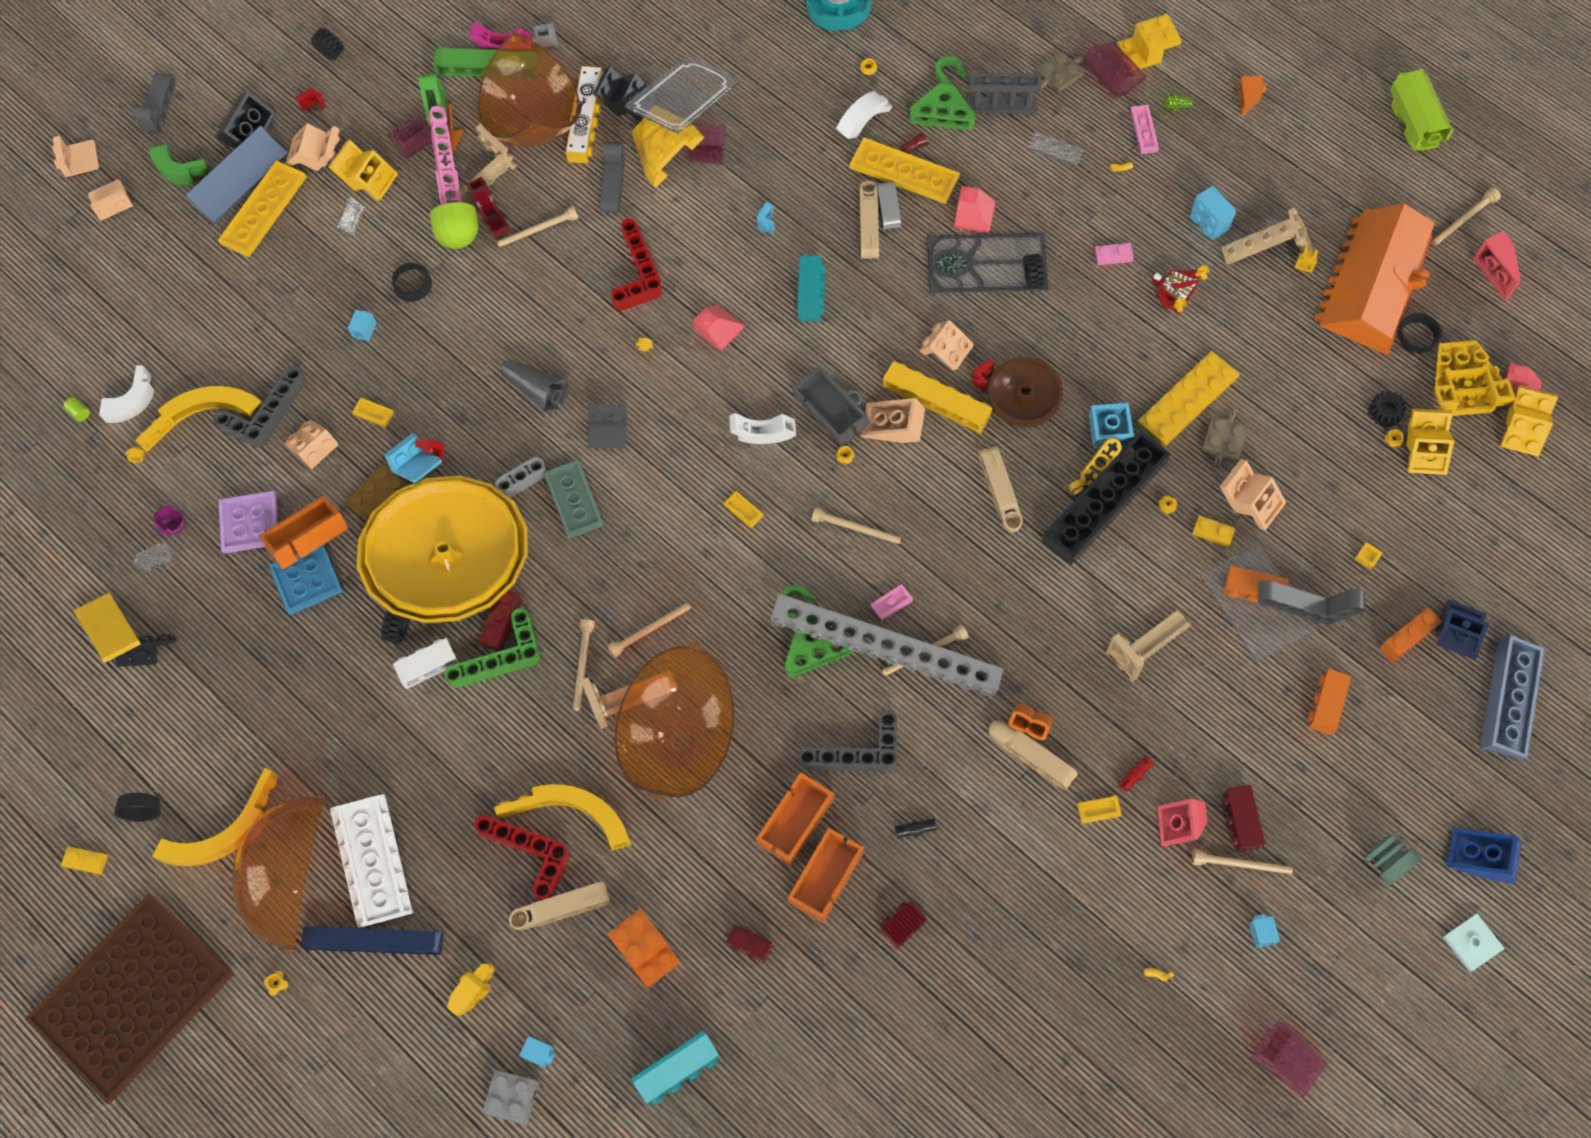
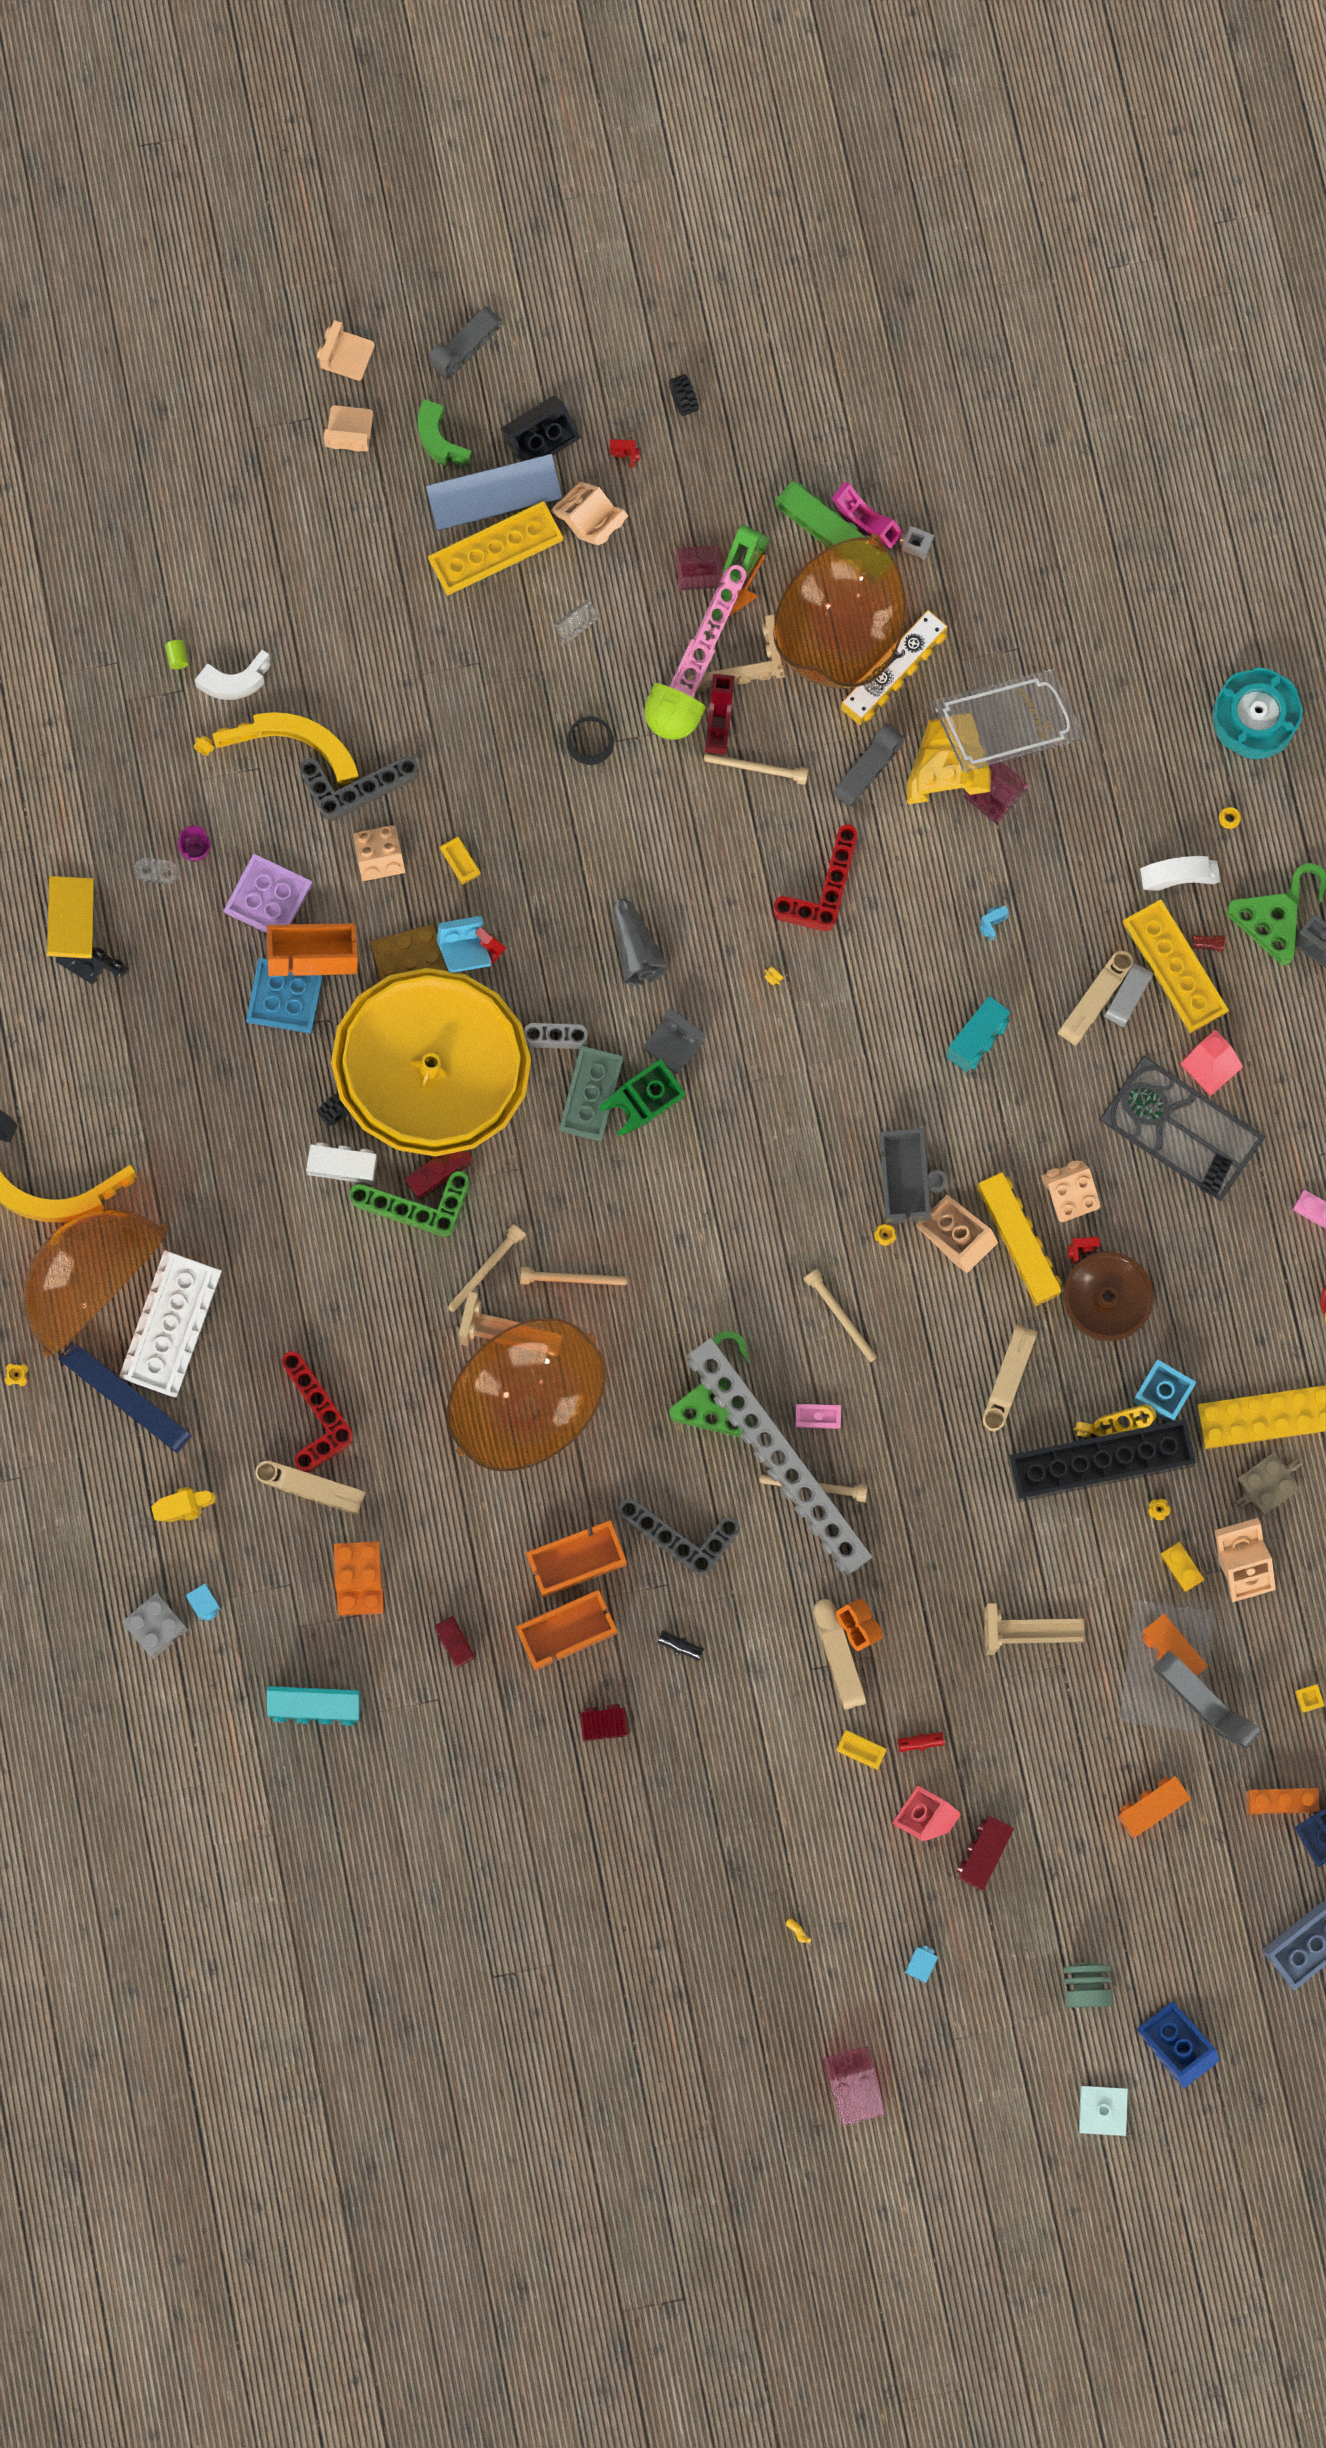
camera: 30 degrees right, 10 degrees up
(362, 325) = (510, 756): medium azure brick -> none
(363, 170) = (623, 578): yellow bracket -> none
(573, 797) = (407, 1431): yellow arch -> none
(613, 473) = (637, 1100): none -> green brick
(617, 91) = (946, 669): black bracket -> none
(717, 326) = (861, 1007): coral slope -> none
(743, 509) = (746, 1220): yellow tile -> none
(763, 431) = (822, 1153): white arch -> none
(1200, 857) = (919, 1860): tan piece -> none

